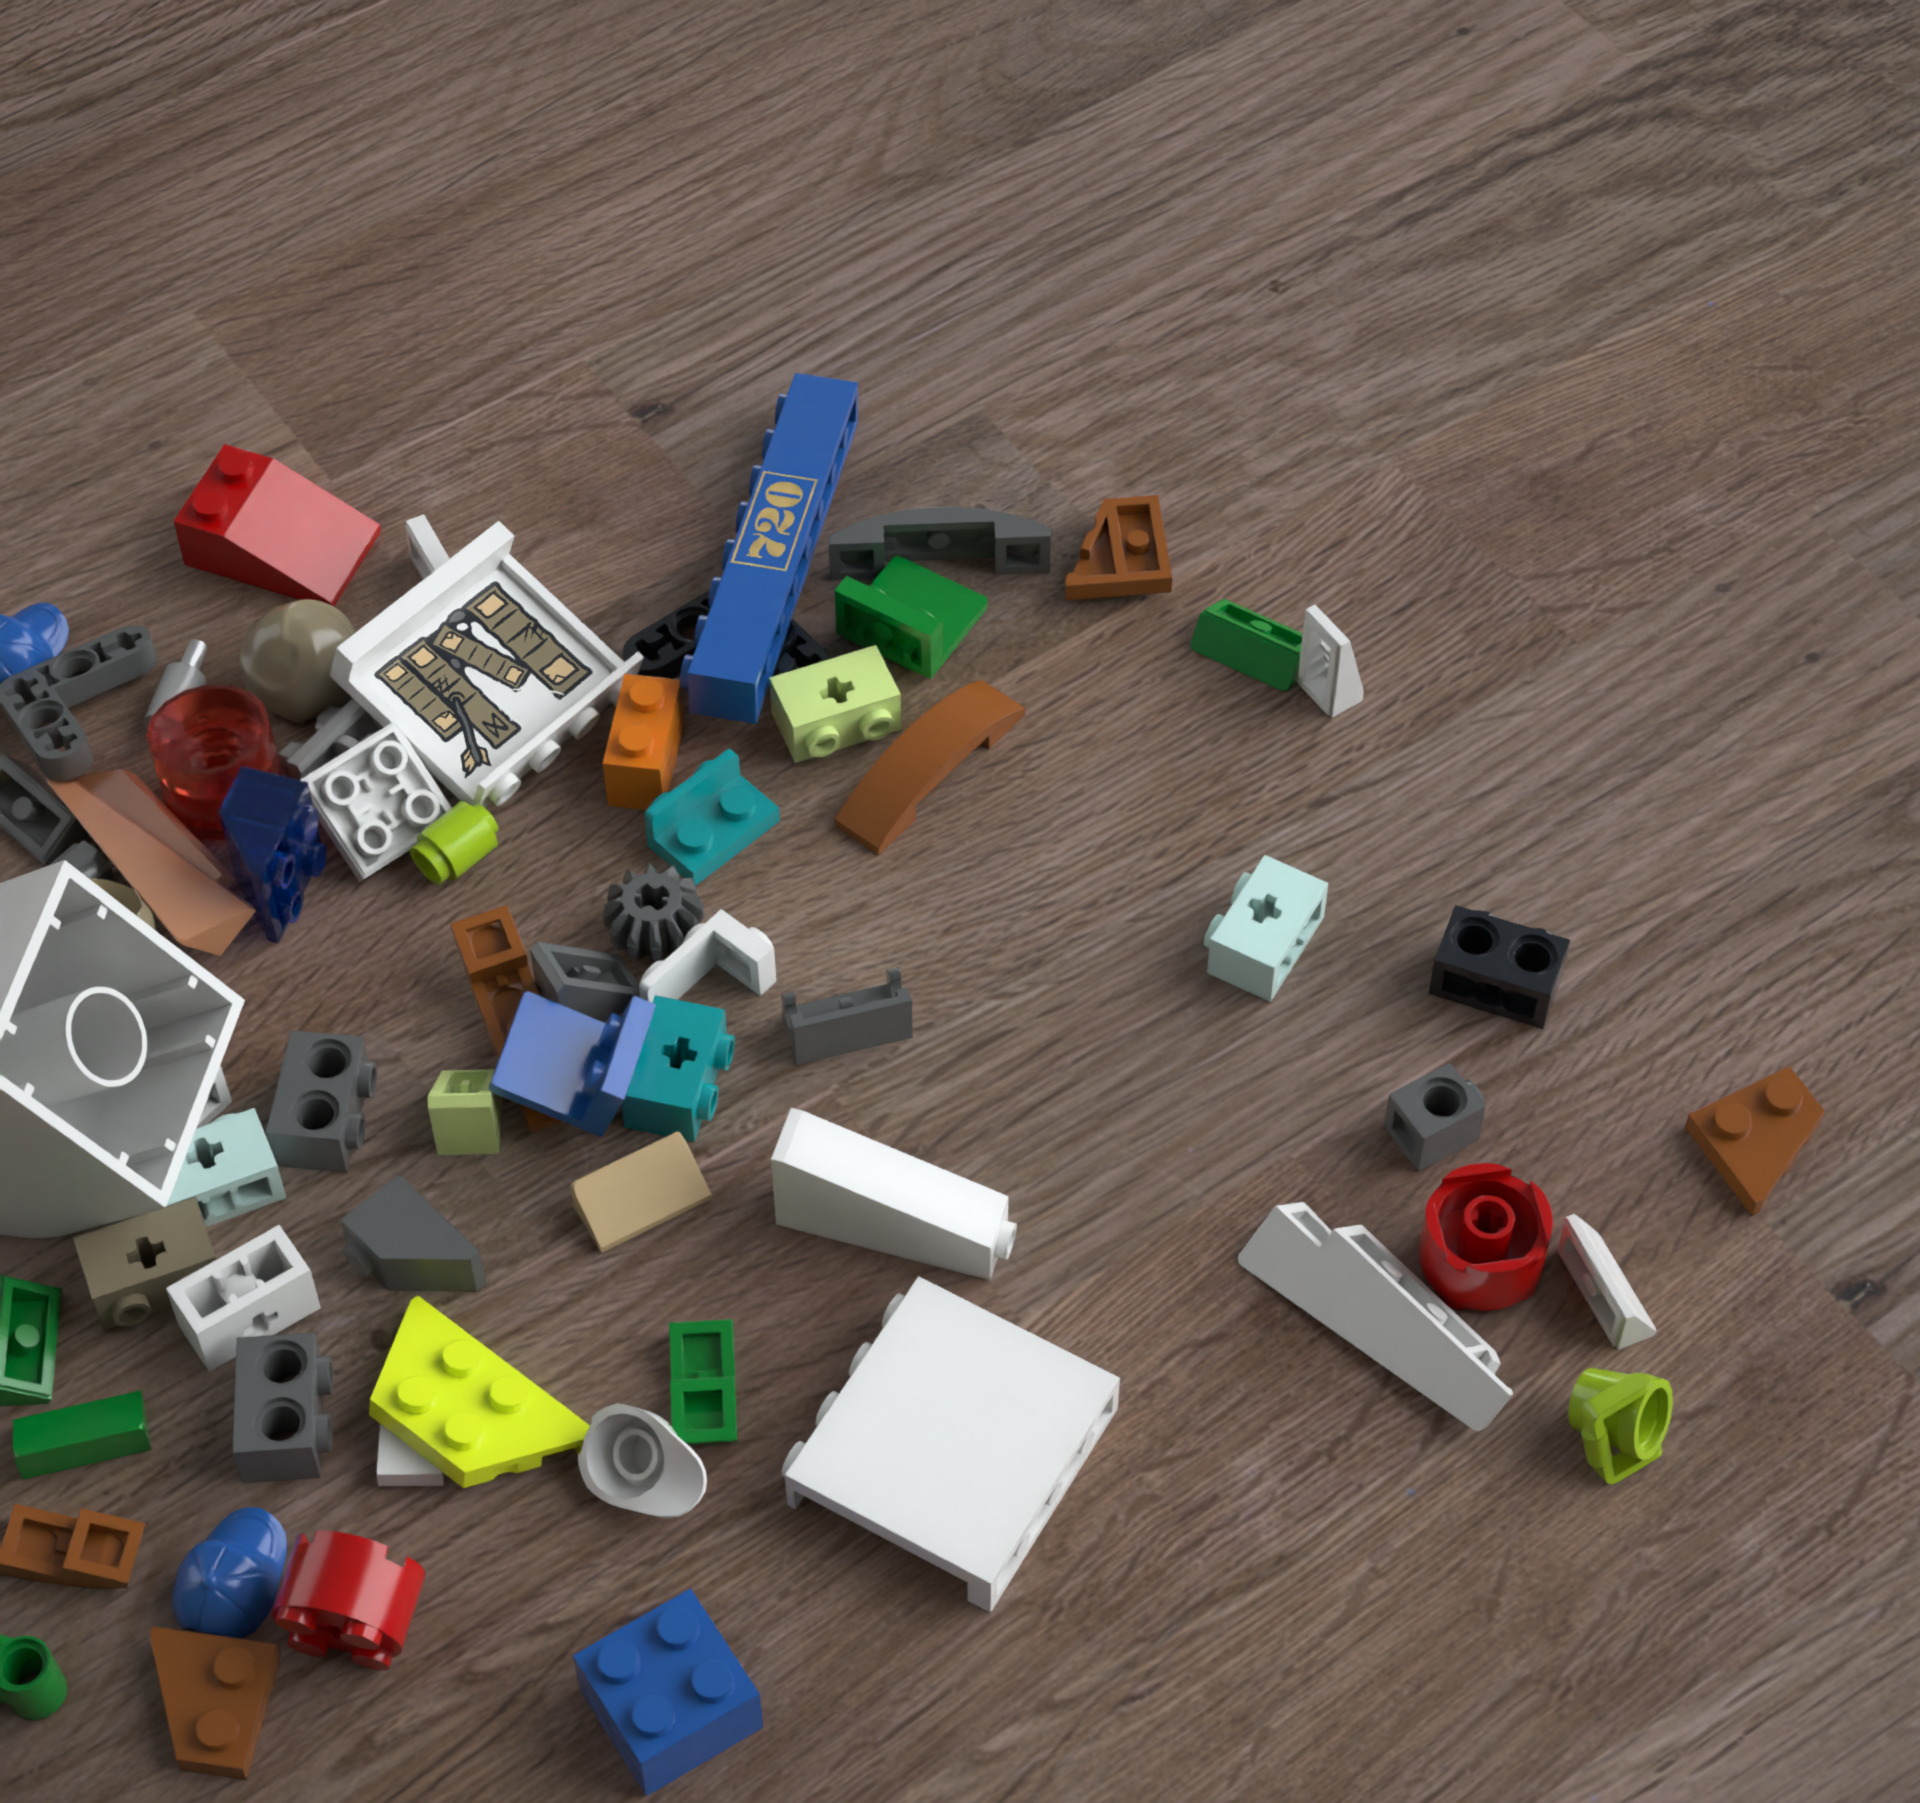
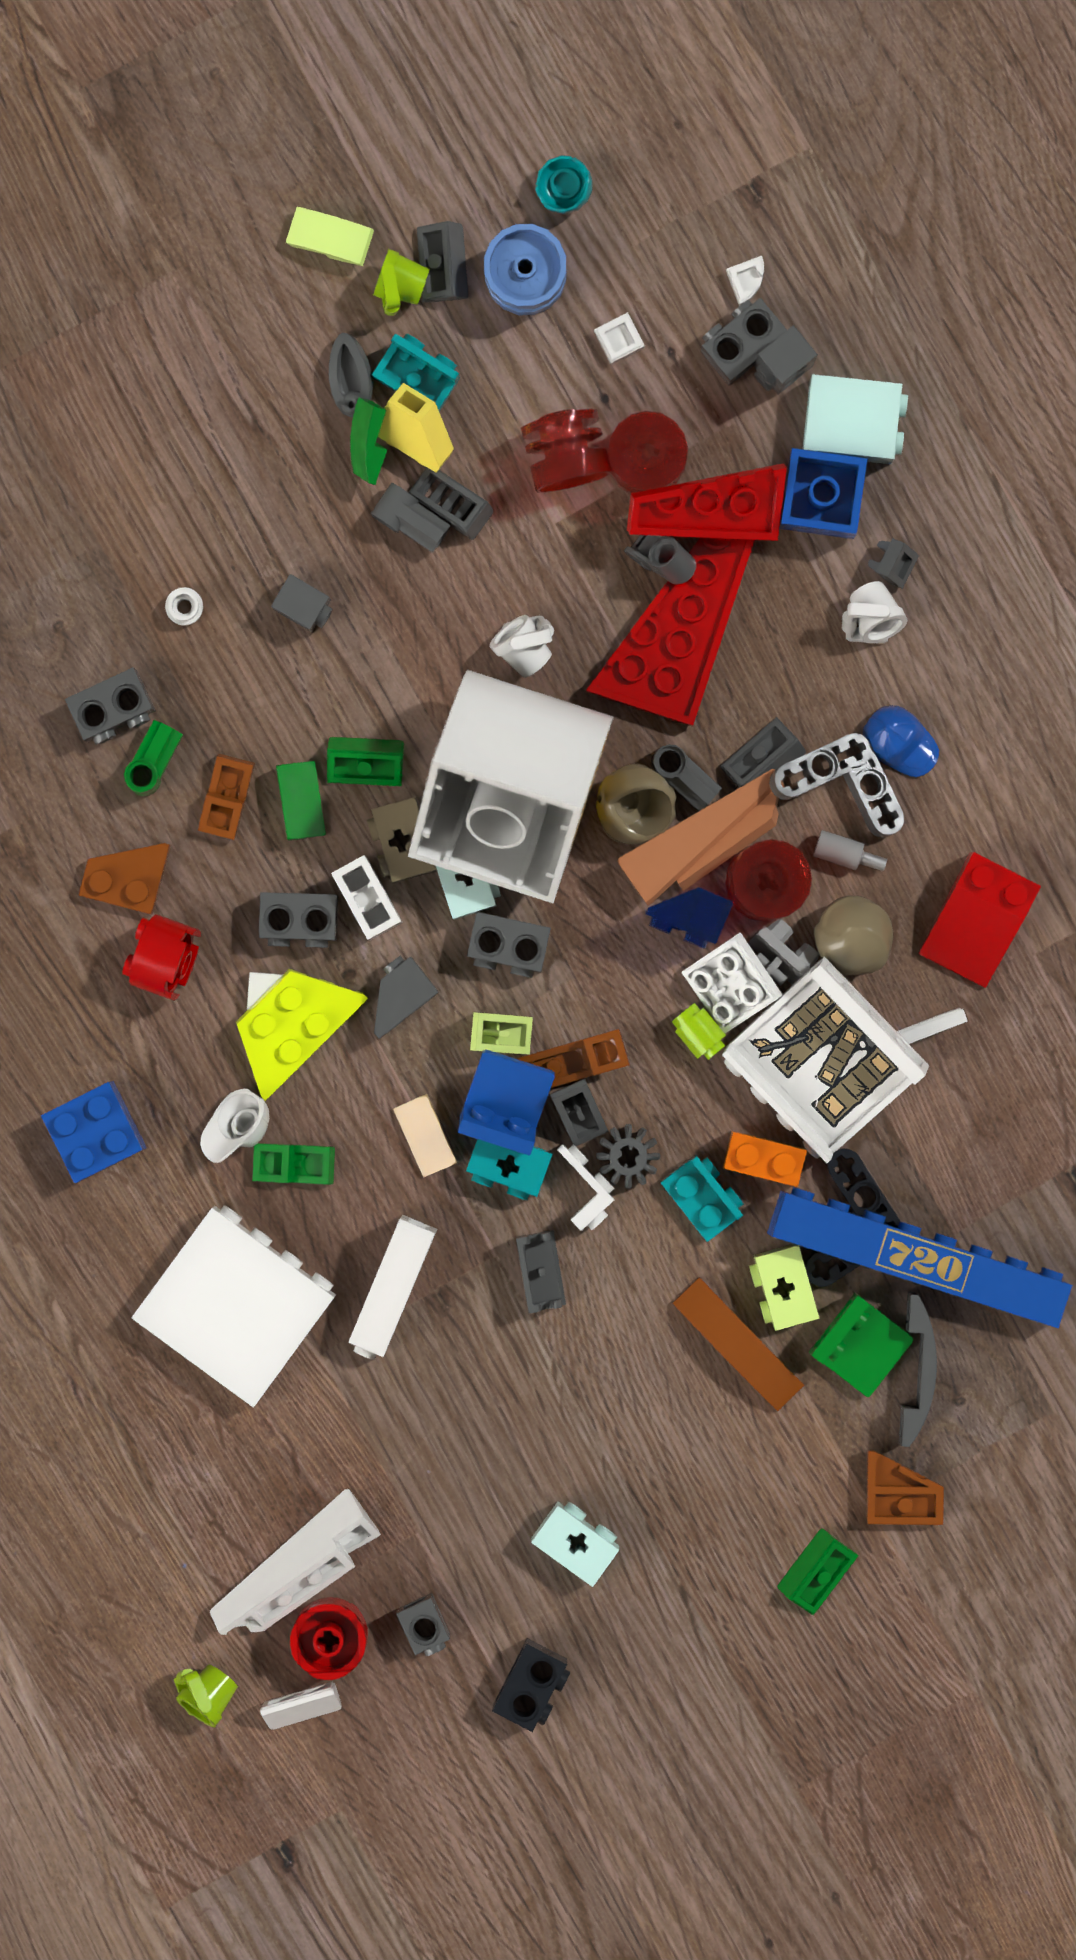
camera: 100 degrees right, 35 degrees up
(231, 1576) = (201, 887): blue piece -> none
(1328, 665) = (775, 1617): white slope -> none
(1757, 1133) = (396, 1820): dark orange wing -> none

